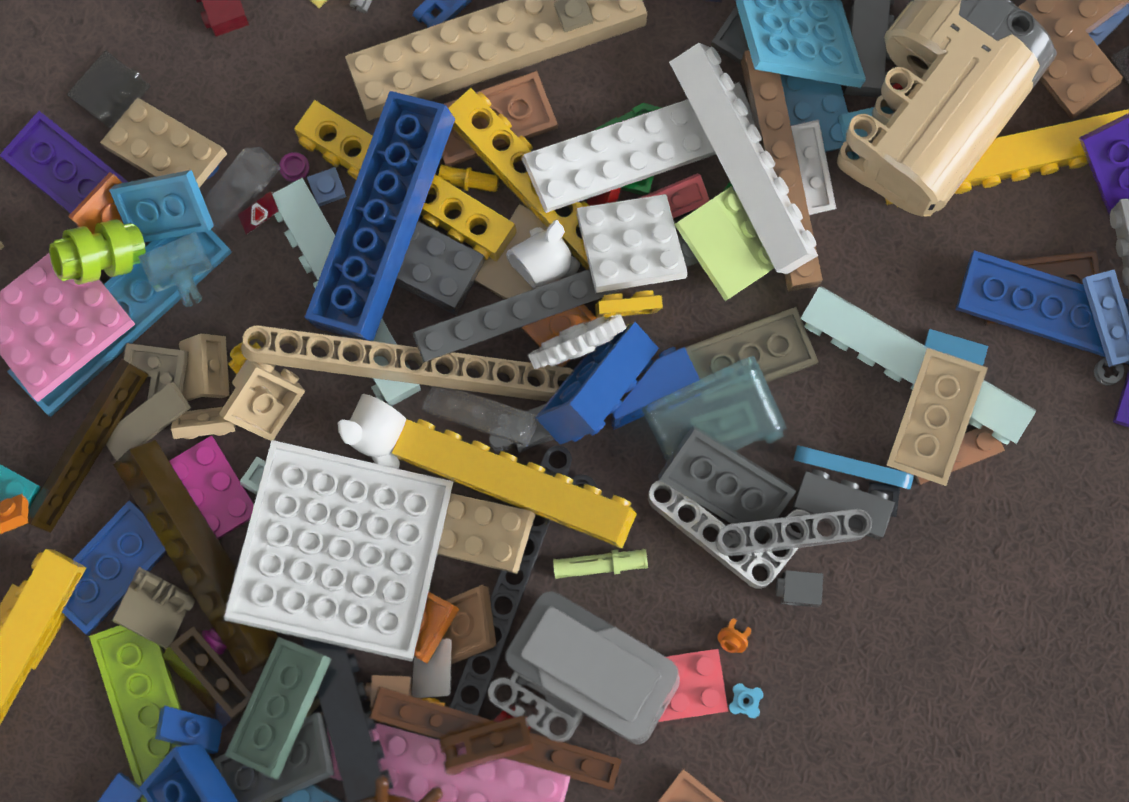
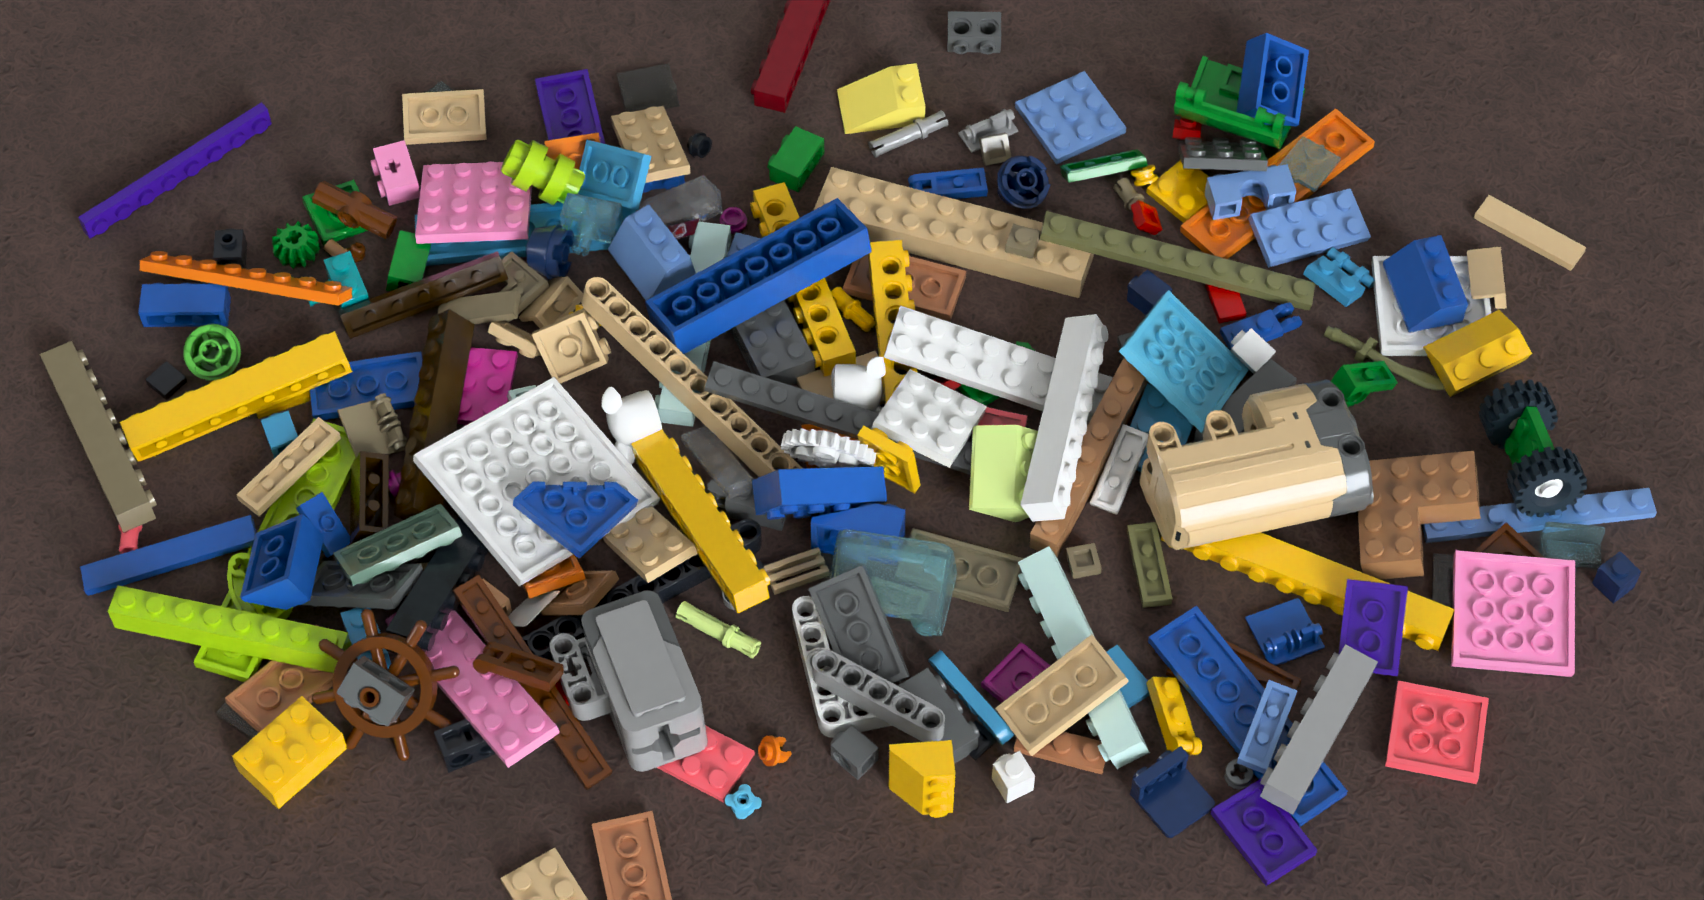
camera: 40 degrees right, 20 degrees down
(41, 423) = (408, 261): none -> green panel
(73, 673) = (279, 431): none -> dark azure brick
(111, 702) = (288, 466): none -> tan plate
(165, 322) = (549, 250): none -> dark blue cone
(202, 114) = (699, 145): none -> black plate
(260, 261) = (650, 253): none -> medium blue slope
(301, 66) = (796, 158): none -> green brick
(404, 557) = (575, 512): none -> blue plate
(632, 436) = (792, 561): none -> tan tile
(844, 273) = (1083, 560): none -> dark tan plate
(877, 417) = (1013, 672): none -> magenta plate
(893, 573) = (923, 775): none -> yellow slope
(899, 236) = (1149, 565): none -> olive plate
(943, 512) = (1012, 776): none -> white brick
(1024, 361) = (1173, 715): none -> yellow plate
(1049, 216) = (1285, 632): none -> blue hinge
(1075, 430) = (1170, 793): none -> dark blue bracket

